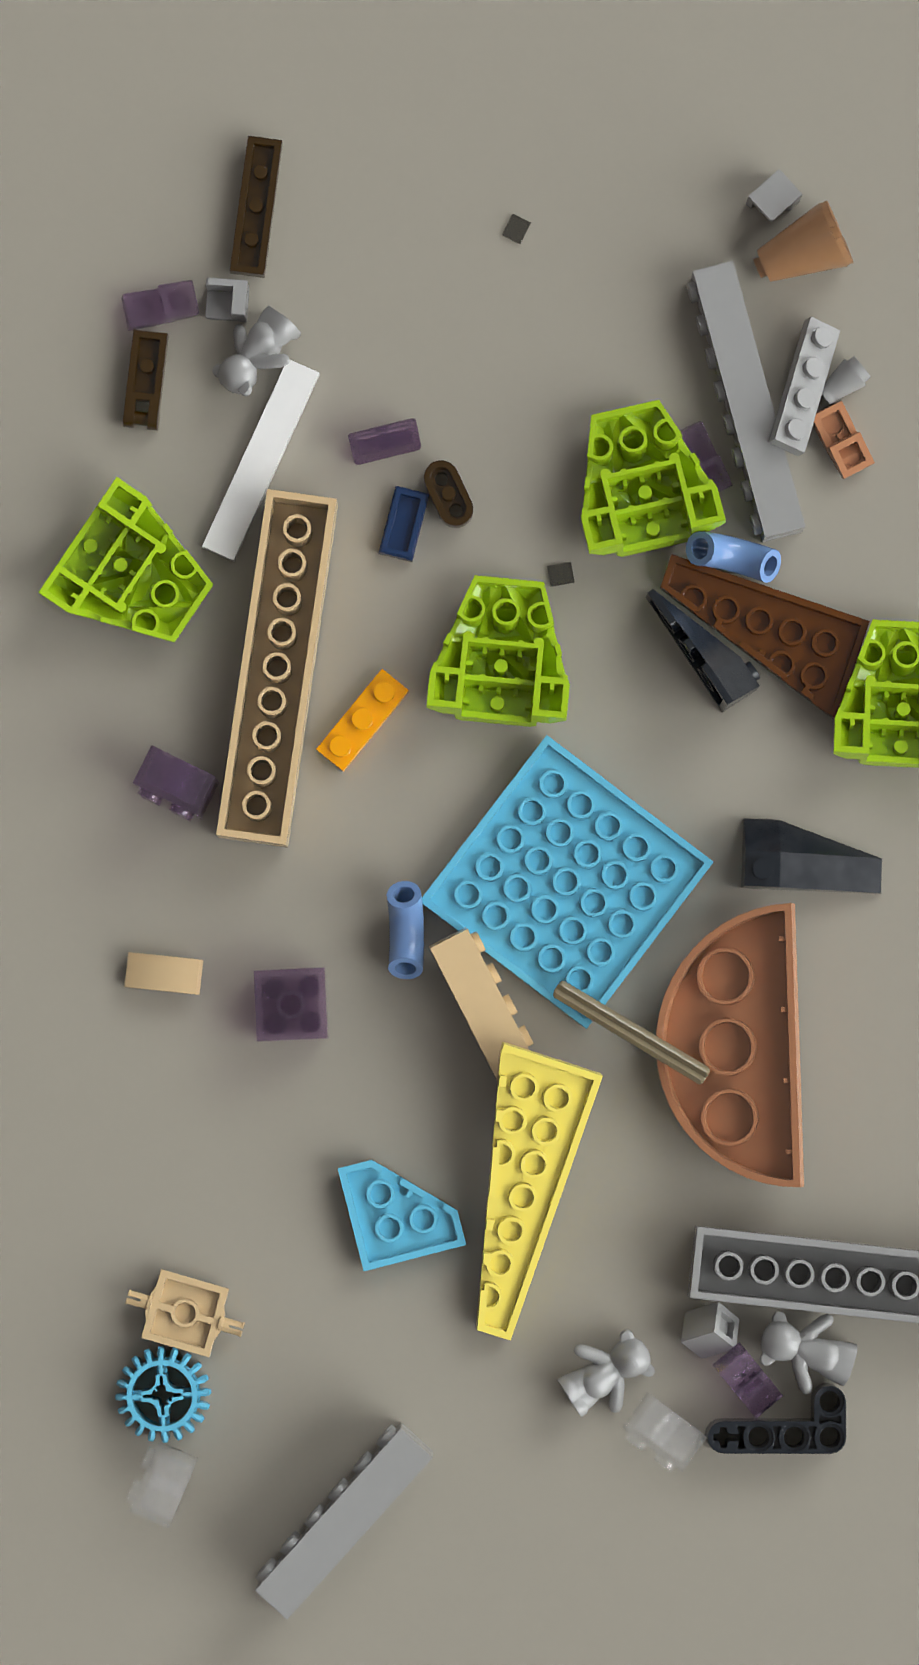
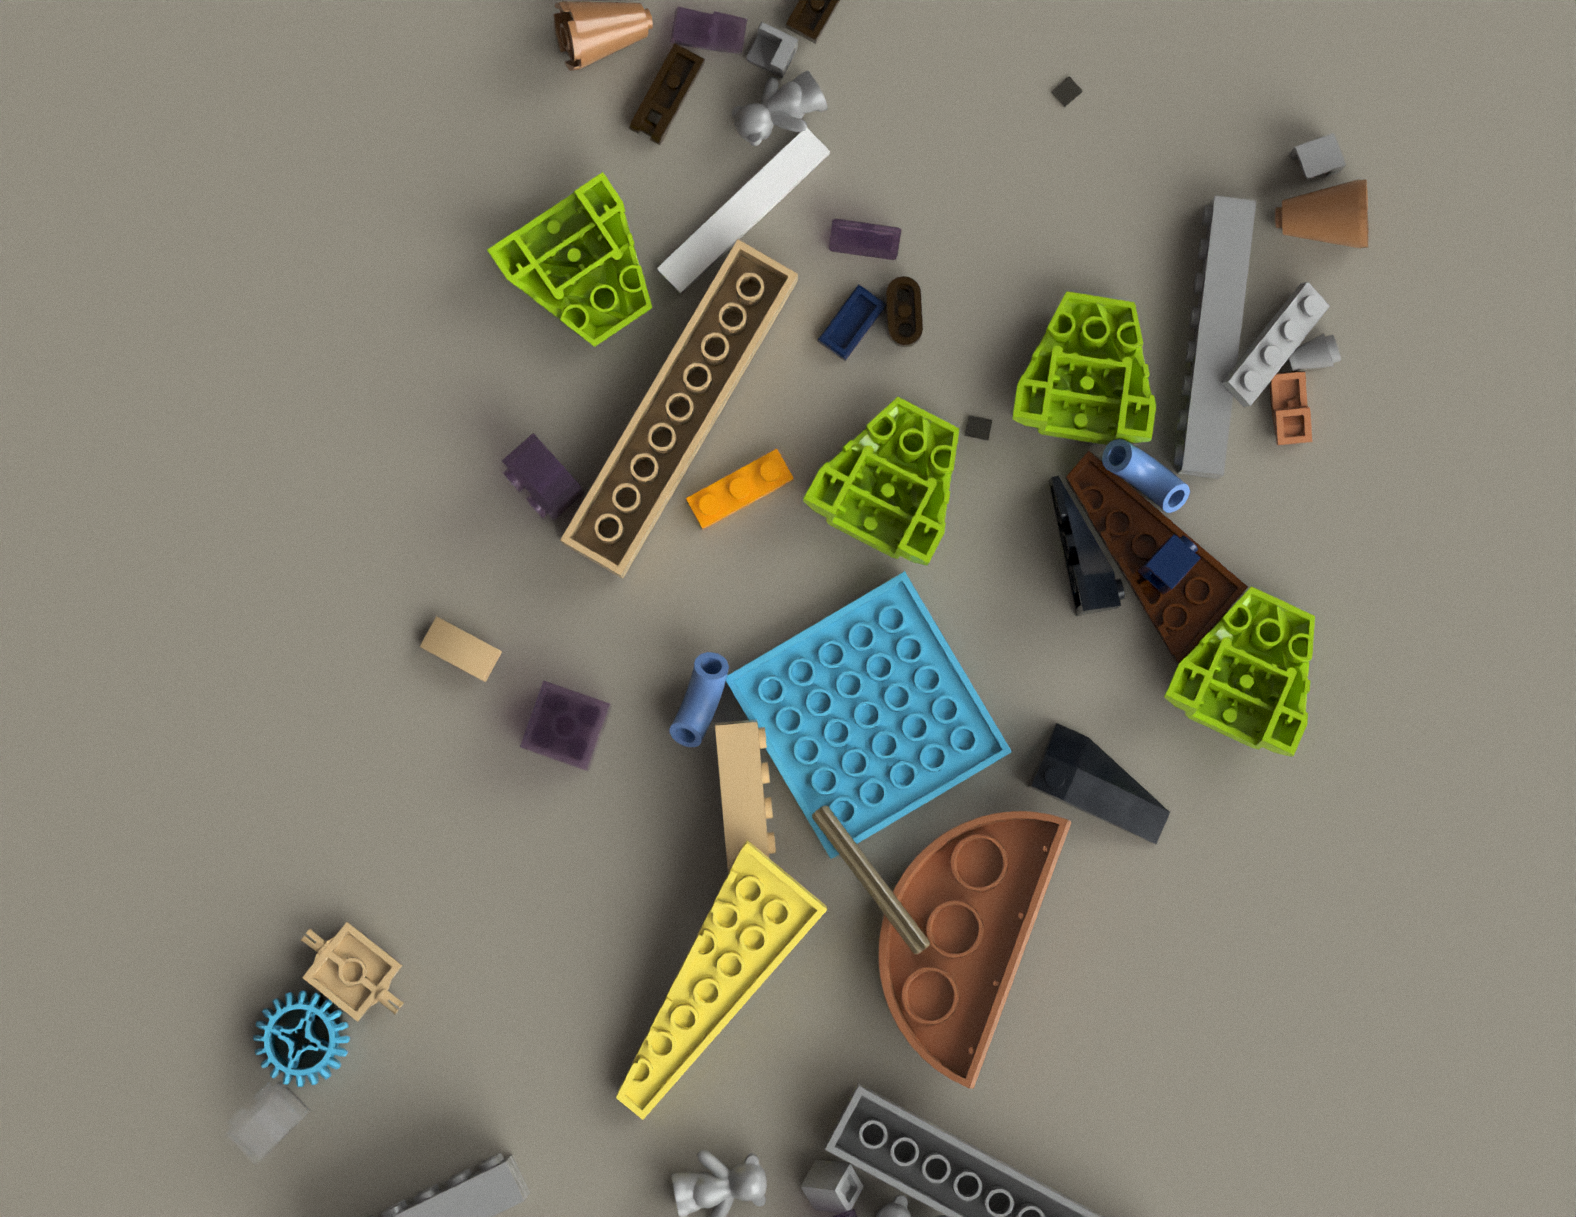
camera: 20 degrees right, 0 degrees up
(57, 345) = (598, 29): none -> medium nougat cone
(395, 1217) = (583, 962): medium azure plate -> none
(698, 441) = (1156, 356): clear purple slope -> none
(789, 628) = (1170, 563): none -> dark blue brick

